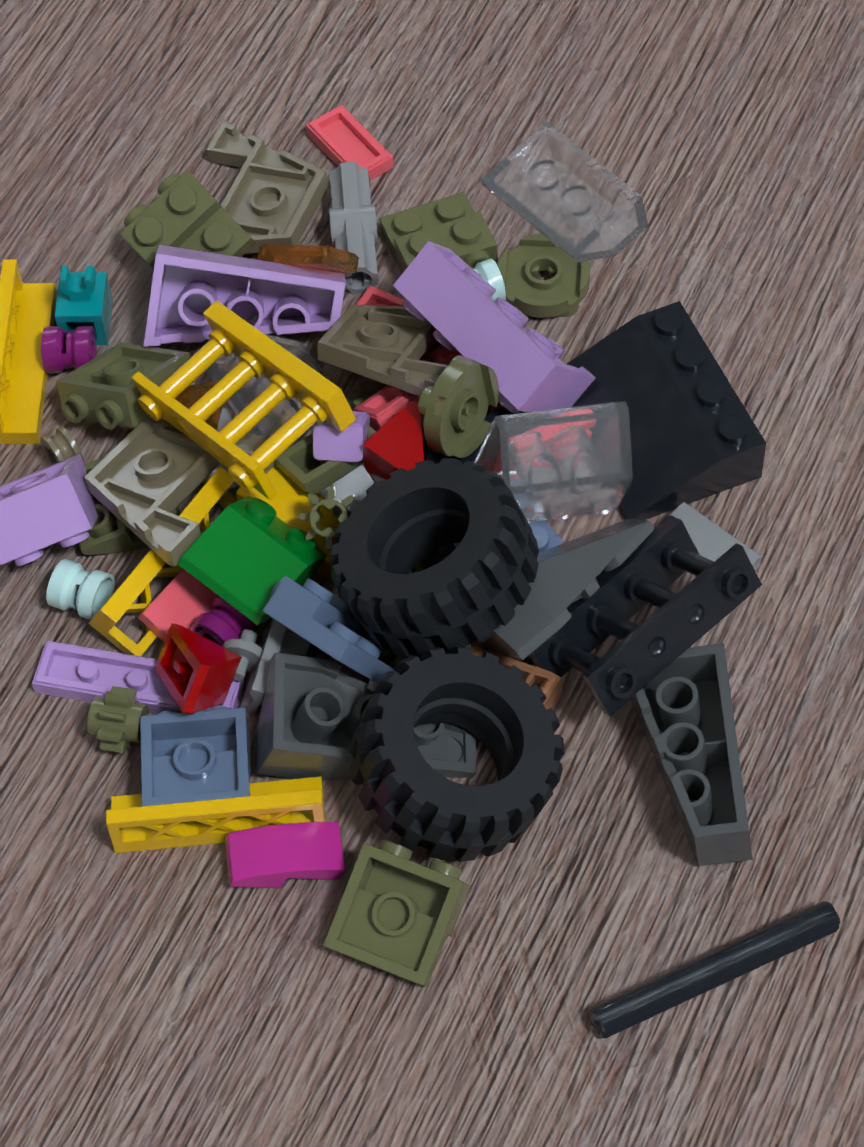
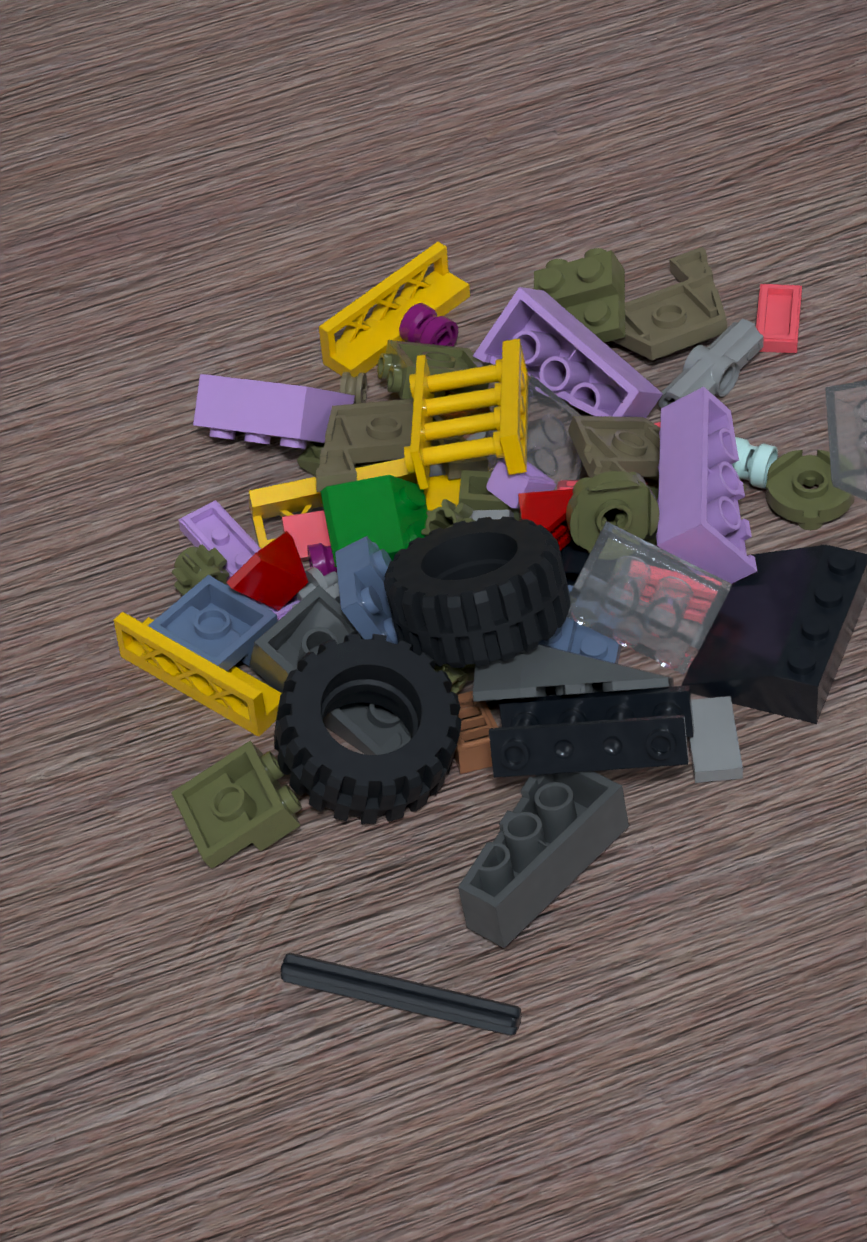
camera: 45 degrees right, 10 degrees down
(79, 589) = (263, 471): light aqua wheel -> none
(84, 301) = (469, 304): teal brick -> none
(283, 851) = (208, 720): dark pink slope -> none
(310, 256) = (645, 366): clear orange tile -> none
(444, 222) = (771, 413): olive plate -> none

